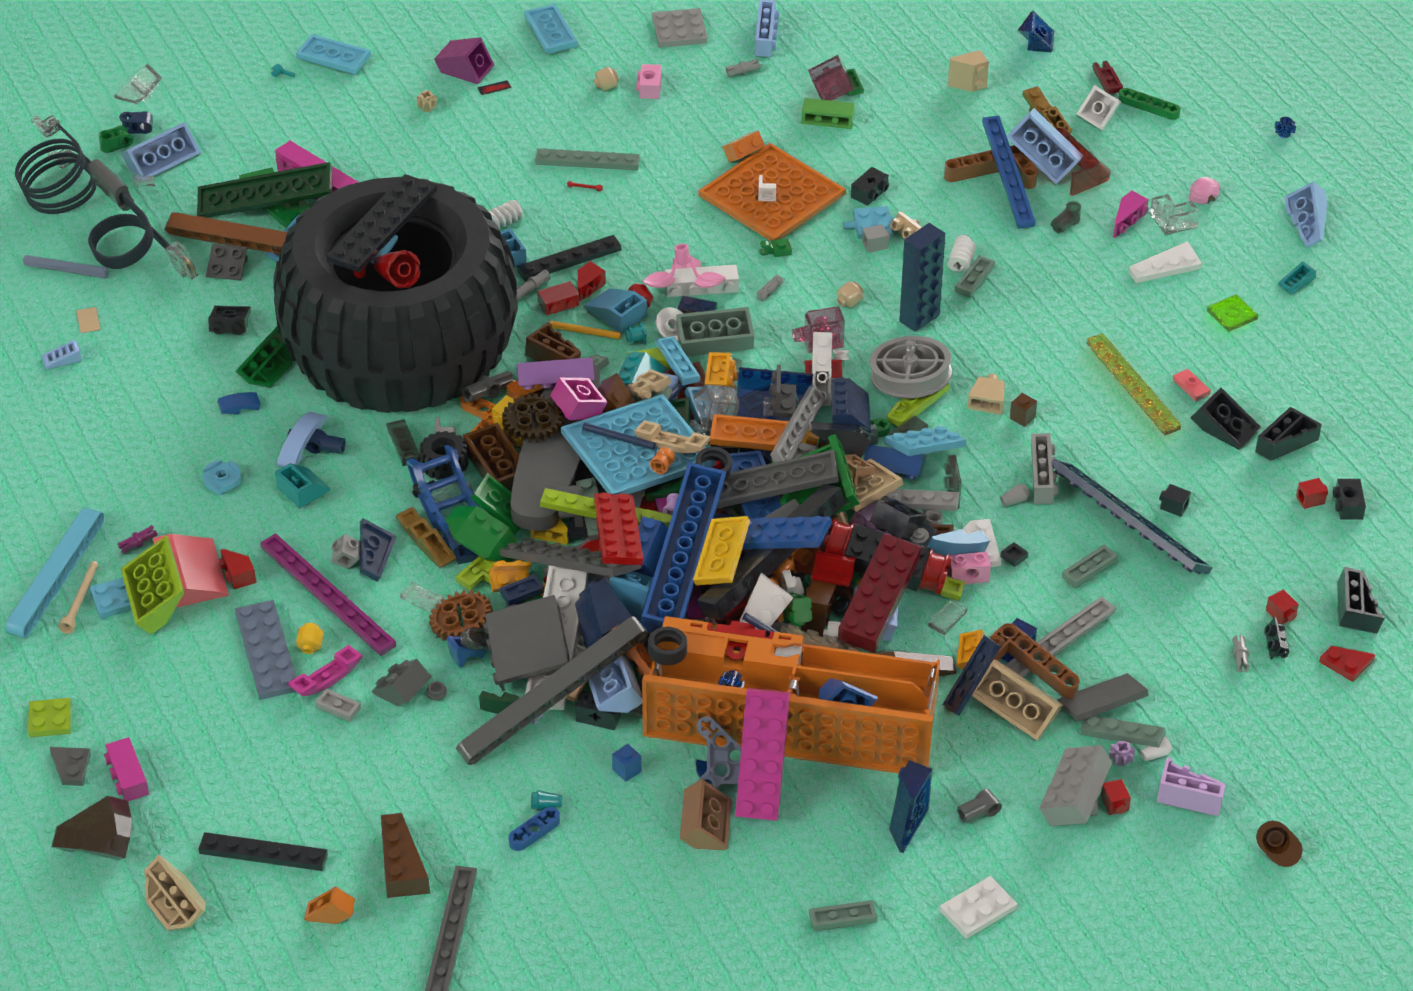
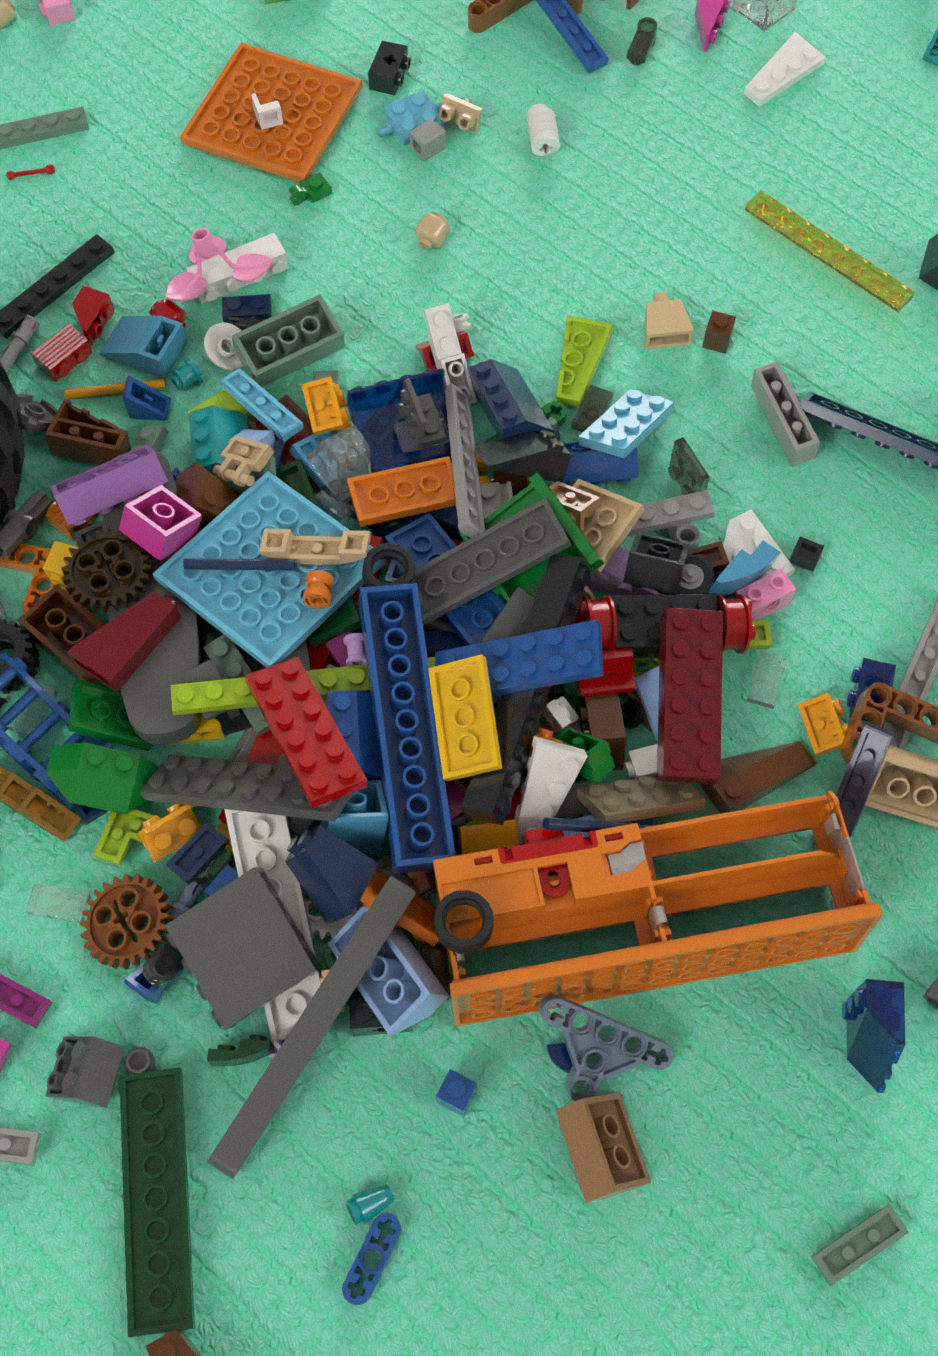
camera: 20 degrees left, 20 degrees up
(417, 756) = (156, 1203): none -> dark green plate
(522, 327) = (35, 414): none -> dark grey plate
(528, 458) = (126, 641): none -> dark red slope
(601, 341) = (144, 401): none -> blue slope
(731, 678) = (570, 939): clear blue gear -> none
(743, 146) = (210, 57): orange brick -> none
(762, 754) = (659, 1037): dark pink brick -> none
(769, 287) = (326, 250): light grey axle -> none
(821, 320) = (421, 290): clear pink hinge -> none
(843, 692) = (736, 905): blue slope -> none
(910, 366) = (557, 315): light grey wheel -> none
(922, 277) = (530, 183): dark blue brick -> none
(974, 276) = (570, 156): sand green plate -> none
(1015, 495) = (767, 462): light grey cone -> none
(1089, 566) = (905, 539): sand green plate -> none
(1191, 385) = (894, 229): coral plate -> none
(1232, 312) = (891, 113): clear neon green tile -> none

